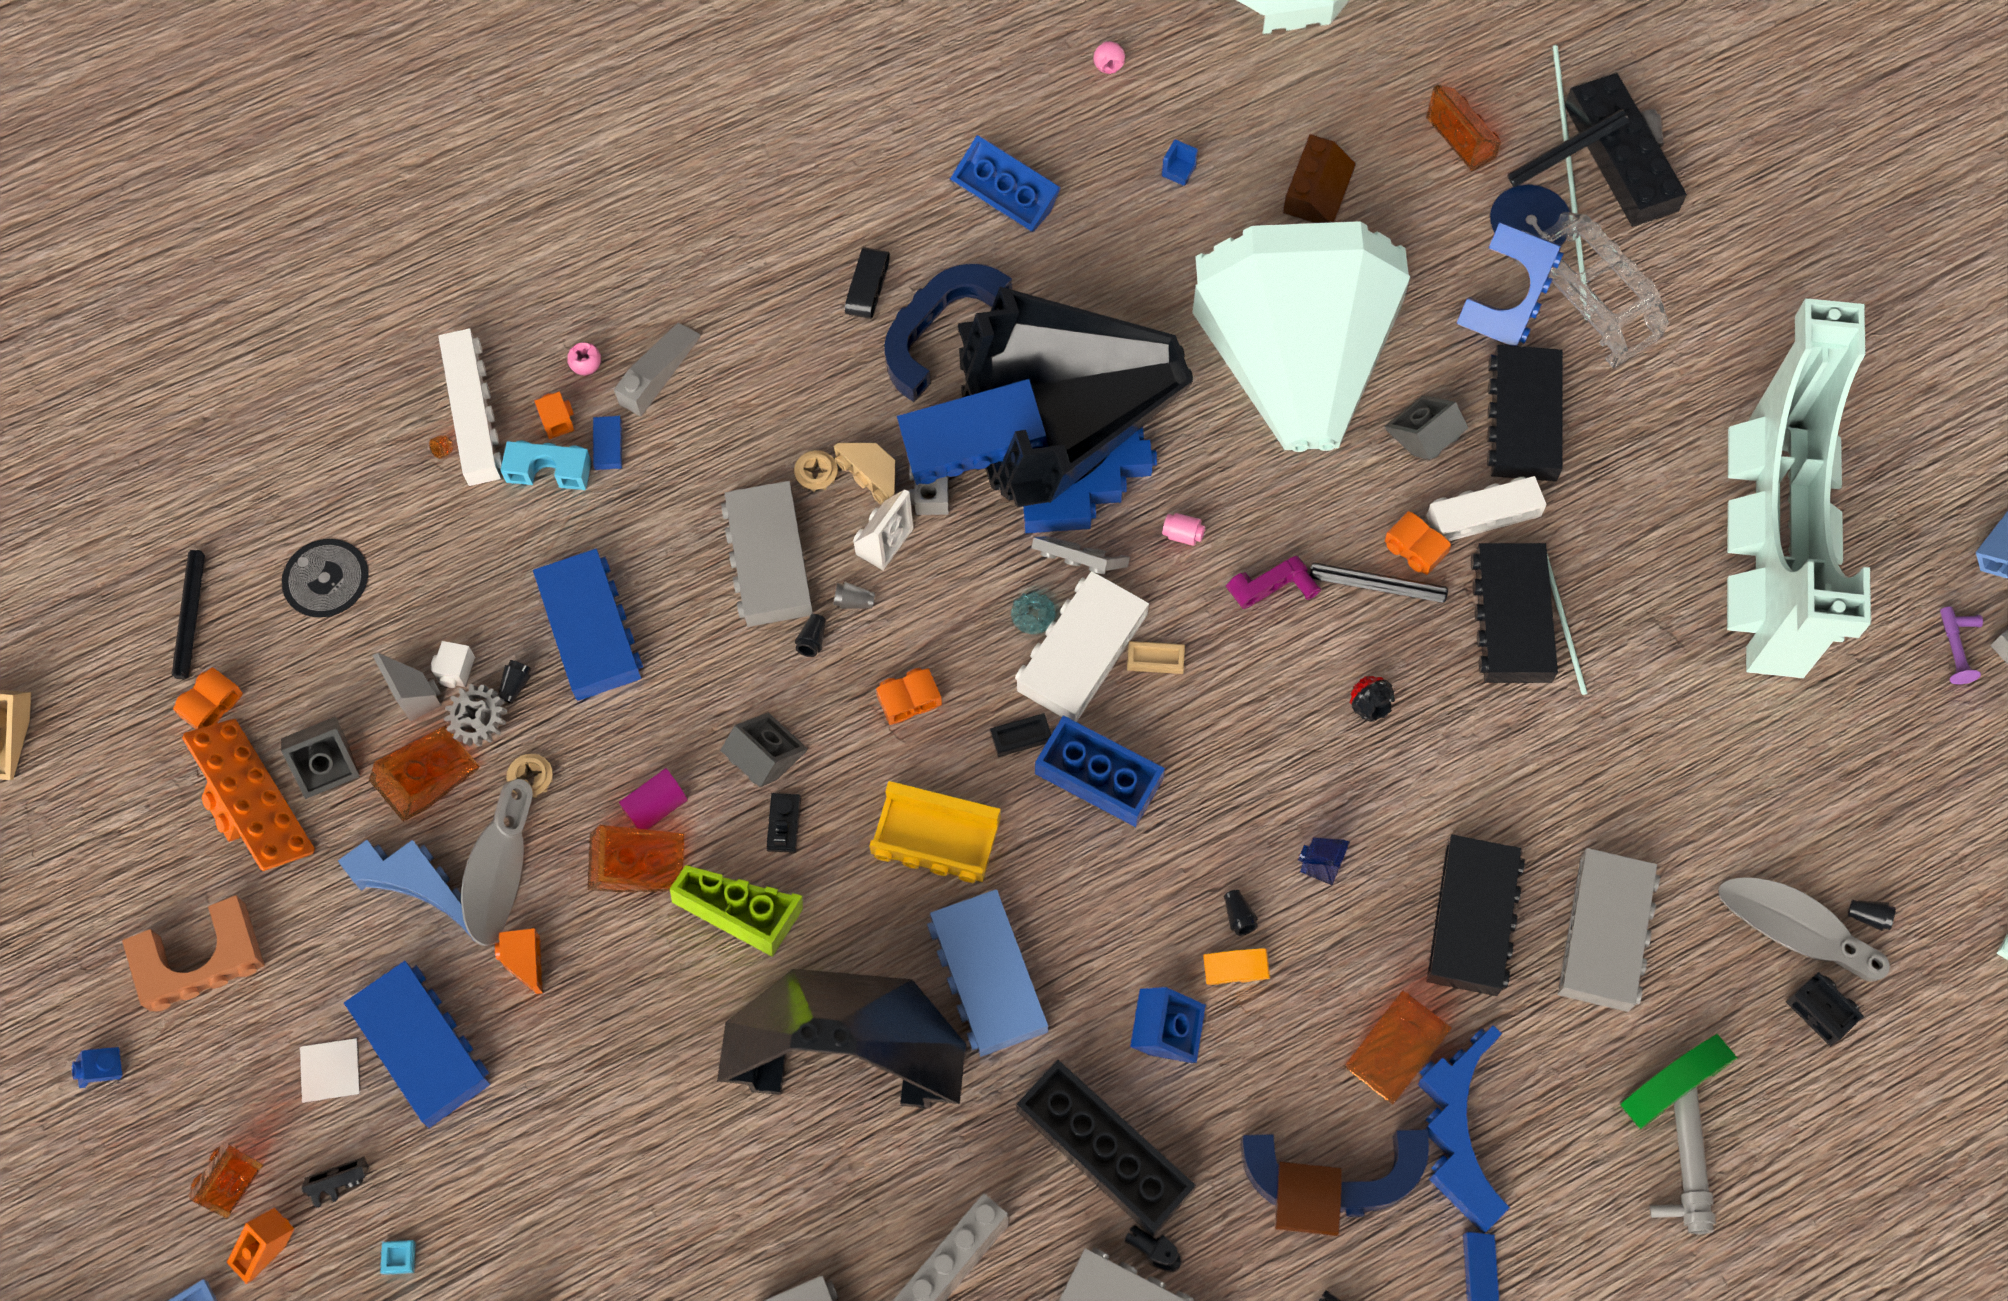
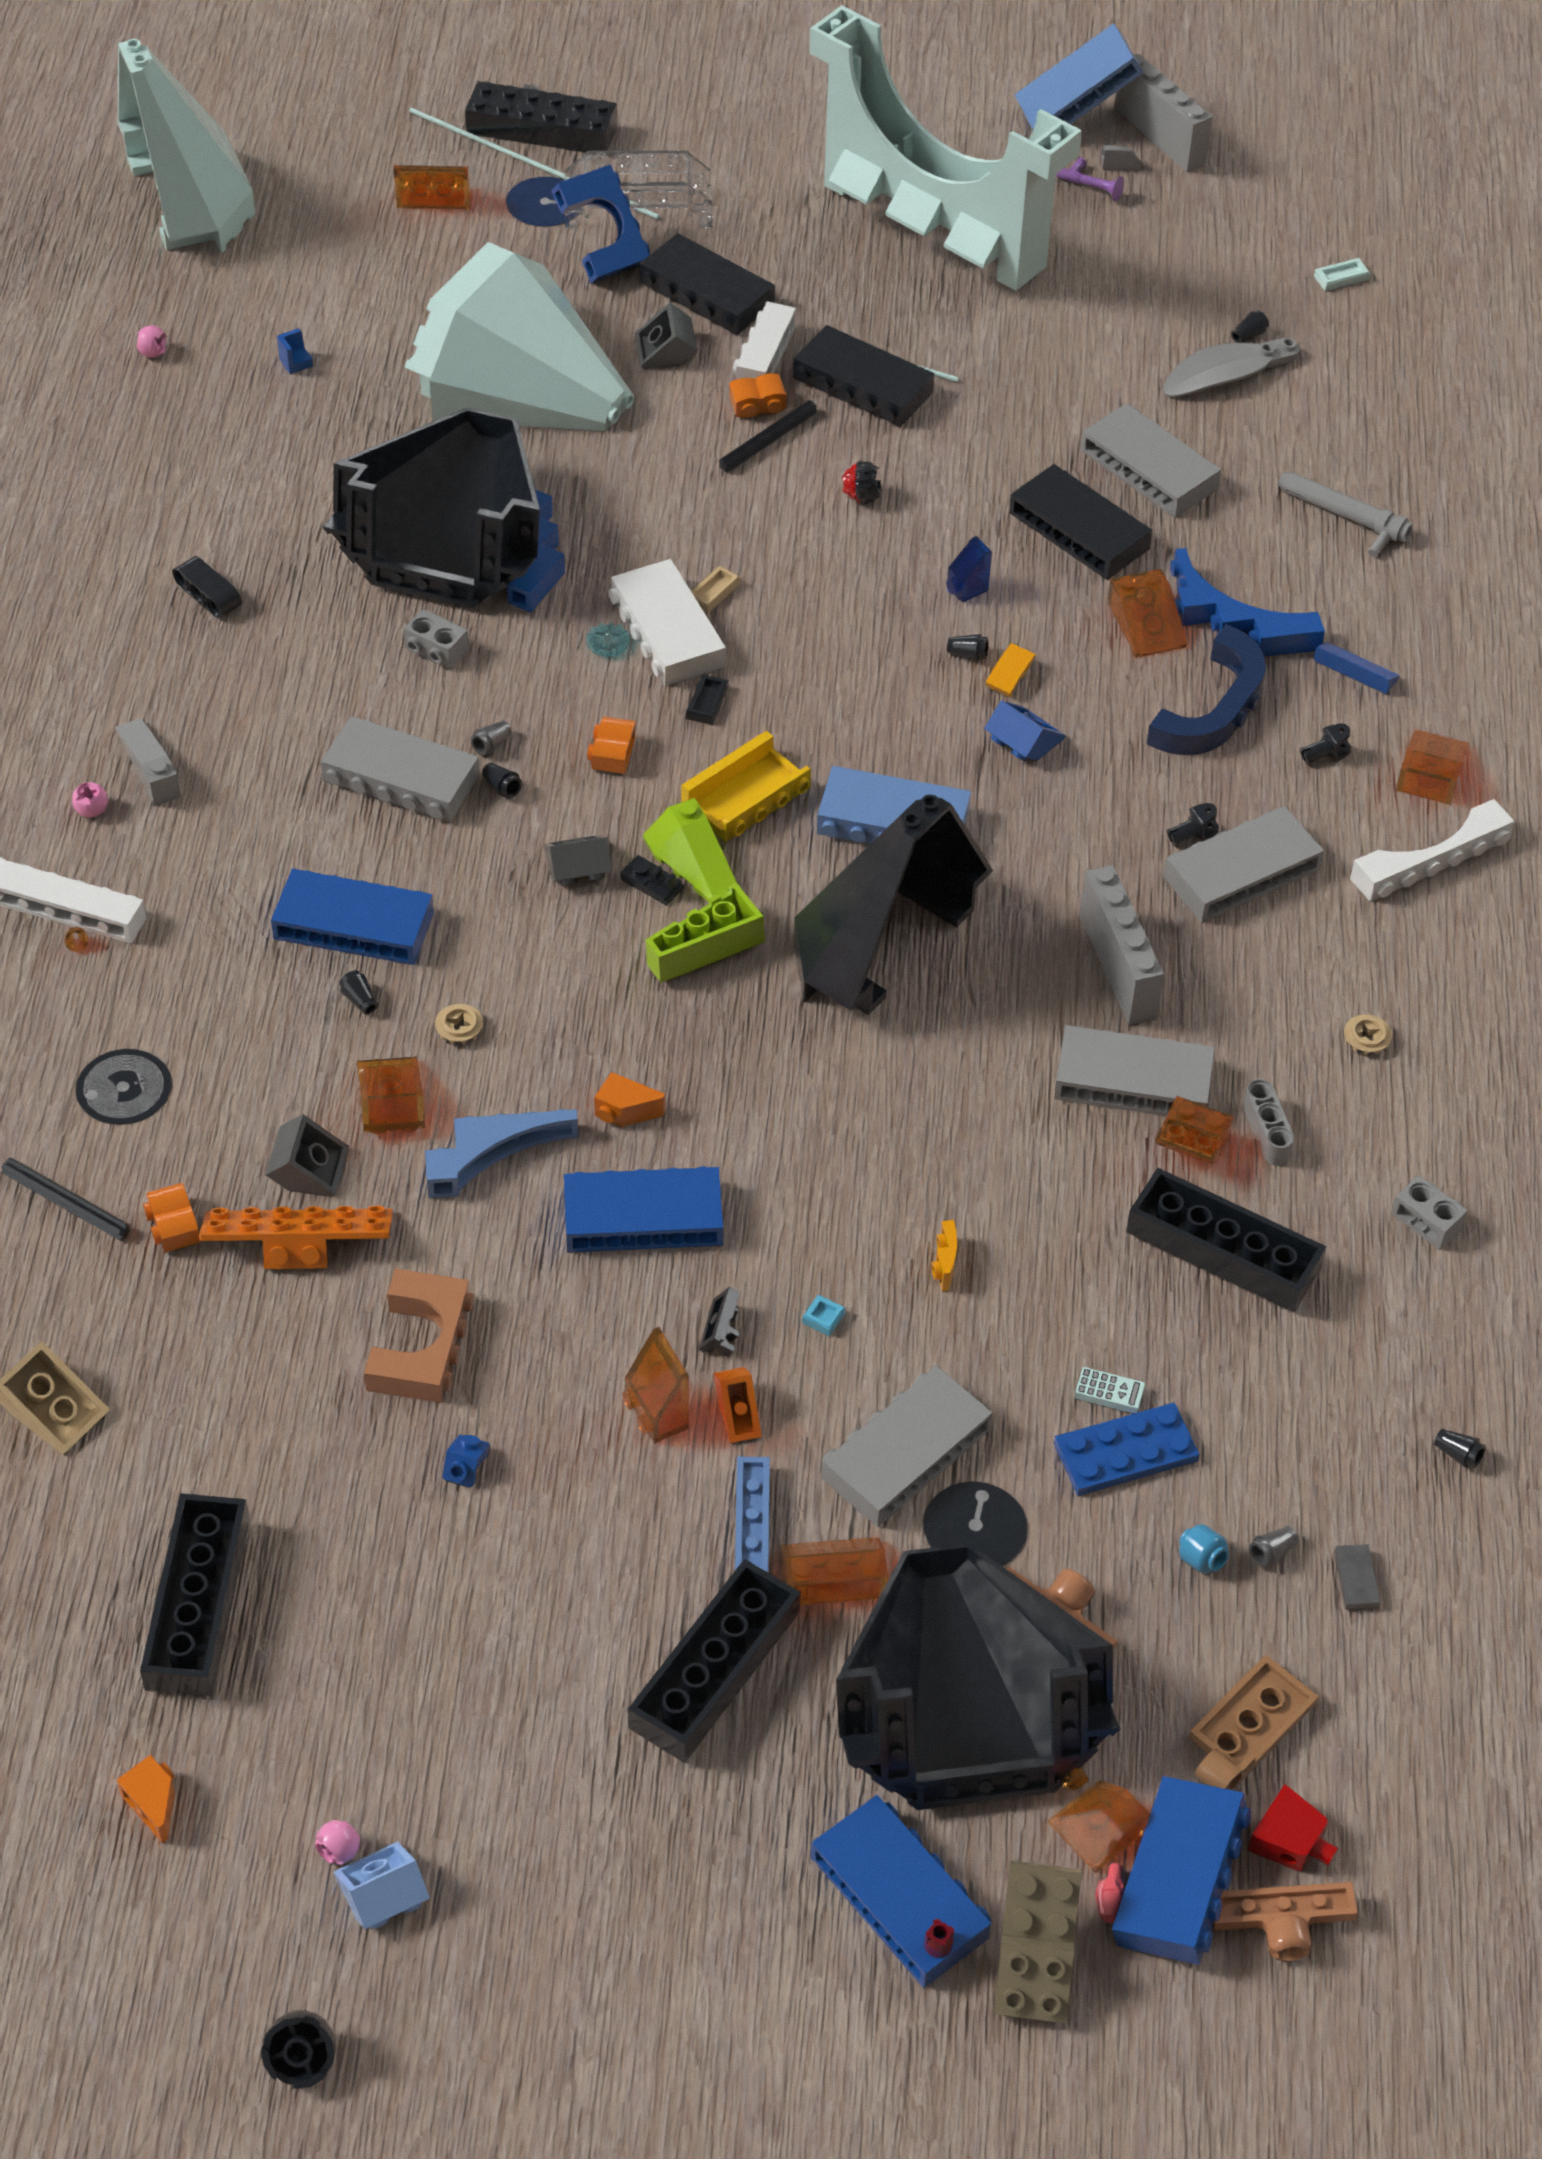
camera: 60 degrees left, 15 degrees down
(329, 1070) = (610, 1292): white sticker -> none
(409, 687) = (296, 1063): light grey slope -> none
(452, 664) = (304, 1024): white brick -> none
(481, 715) = (357, 1024): light grey gear -> none
(496, 866) = (517, 1071): light grey plant -> none
(524, 460) = (184, 857): medium azure arch -> none
(555, 414) = (125, 845): orange brick -> none
(607, 442) = (186, 827): blue tile -> none
(634, 859) = (600, 987): clear orange slope -> none
(653, 800) = (560, 949): magenta brick -> none
(808, 462) = (350, 697): tan gear -> none
(832, 835) = (689, 846): none -> lime wedge
(870, 467) = (387, 667): tan slope -> none
(885, 531) = (455, 675): white slope -> none
(927, 304) = (297, 602): dark blue arch -> none
(969, 431) = (425, 575): blue brick -> none
(1006, 184) = (202, 459): blue slope -> none
(1071, 551) = (586, 581): light grey wing -> none
(1099, 771) = (784, 660): blue brick -> none
(1105, 1148) = (1094, 810): black brick -> none
(1183, 529) = (620, 515): bright pink brick -> none
(1292, 570) = (708, 507): magenta beam -> none
(1308, 1198) = (1228, 708): reddish brown slope -> none
(1319, 181) = (391, 288): reddish brown slope -> none
(1568, 148) = (513, 140): black axle -> none
(1677, 1080) = (1292, 486): green slope -> none
(1825, 1008) = (1299, 386): black hinge -> none

